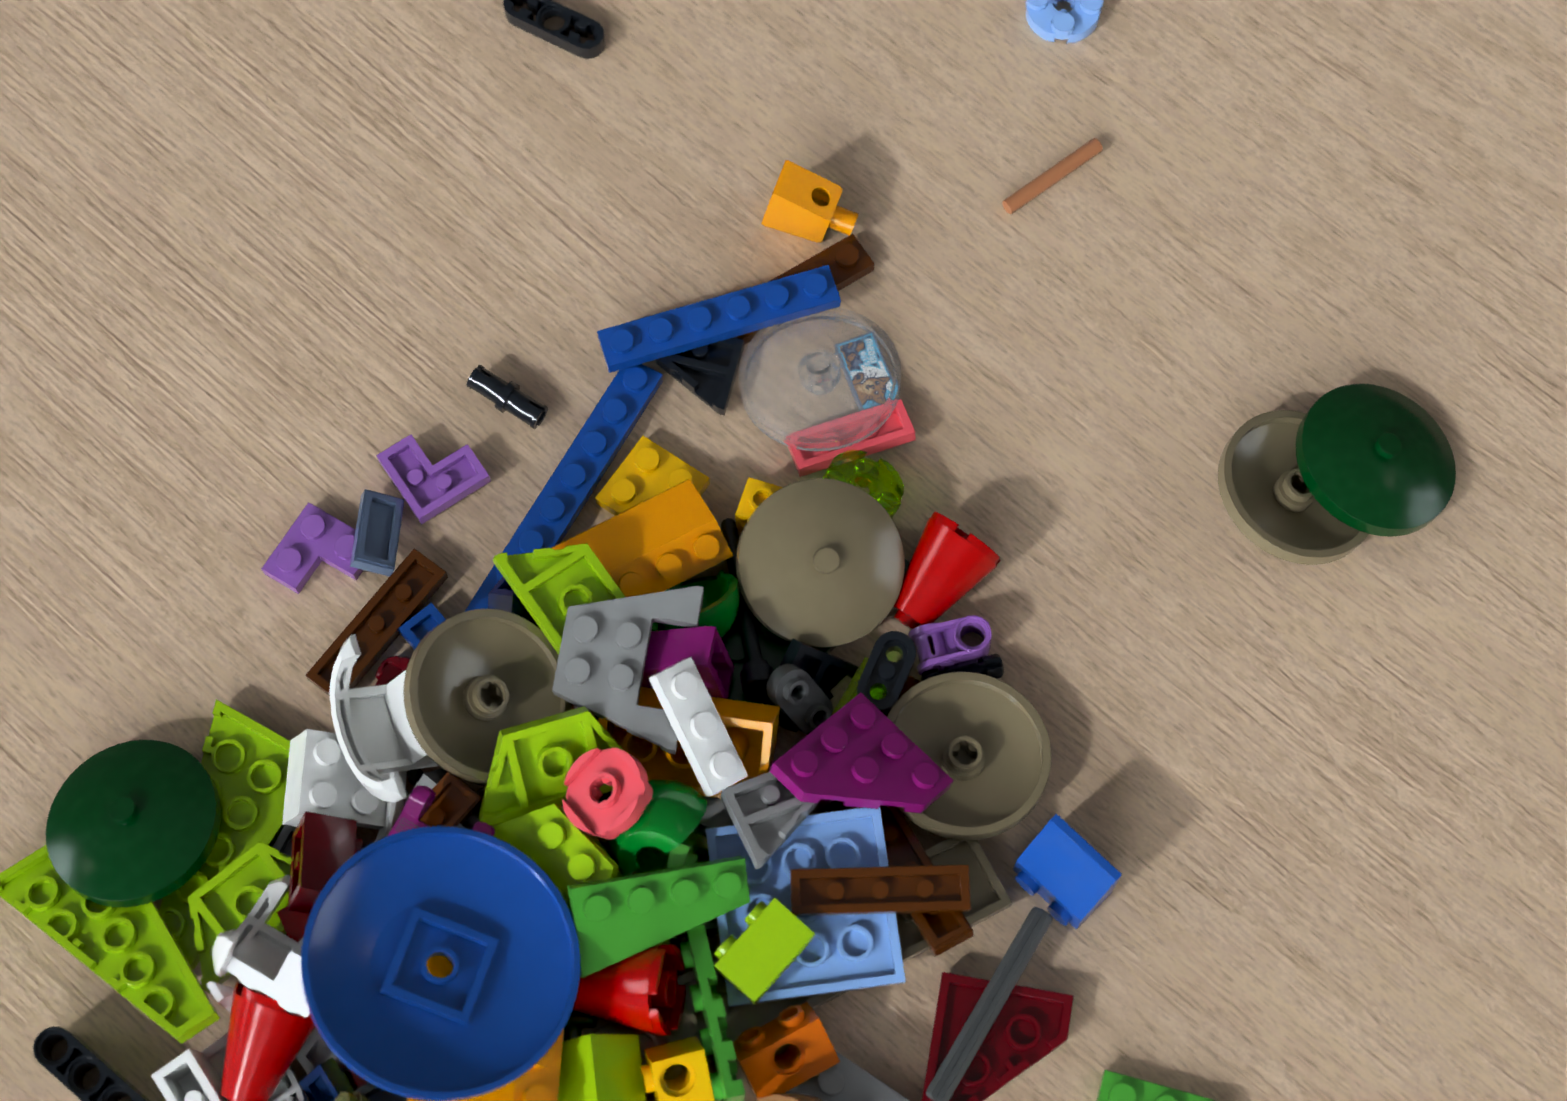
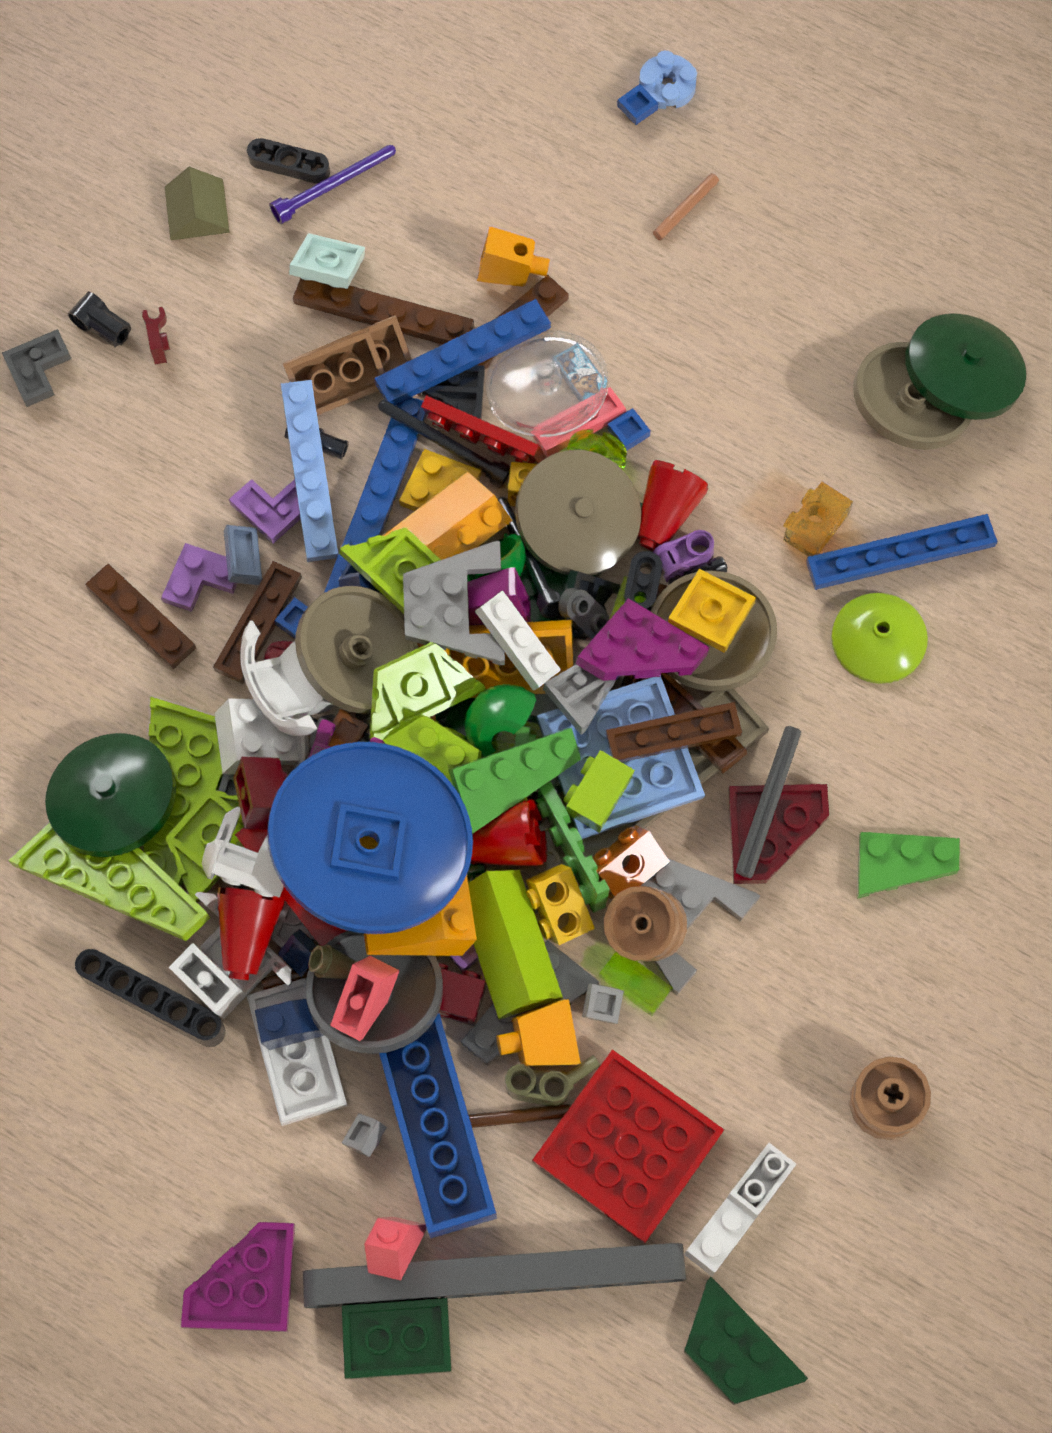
camera: 10 degrees left, 0 degrees up
(165, 226) = (30, 361): none -> dark grey plate
(231, 588) = (140, 616): none -> reddish brown plate
(262, 181) = (94, 315): none -> black piece
(334, 229) = (157, 341): none -> dark red plate
(424, 60) = (196, 205): none -> olive slope
(486, 438) = (309, 471): none -> light blue plate
(536, 84) = (284, 208): none -> dark purple piece
(565, 309) = (348, 366): none -> medium nougat slope
(572, 164) = (327, 261): none -> light aqua plate
(628, 240) = (374, 307): none -> reddish brown plate
(628, 798) = (477, 704): coral plate -> none
(710, 425) = (474, 430): none -> red plate
(728, 484) = (495, 471): none -> black piece
(914, 460) = (629, 429): none -> blue plate
(967, 730) = (711, 610): none -> yellow plate
(1017, 30) = (637, 104): none -> blue plate
(1065, 873) = (804, 697): blue slope -> none
(1126, 652) = (813, 536): none -> clear yellow brick
(1170, 827) = (874, 654): none -> lime dish
(1239, 694) = (901, 551): none -> blue plate

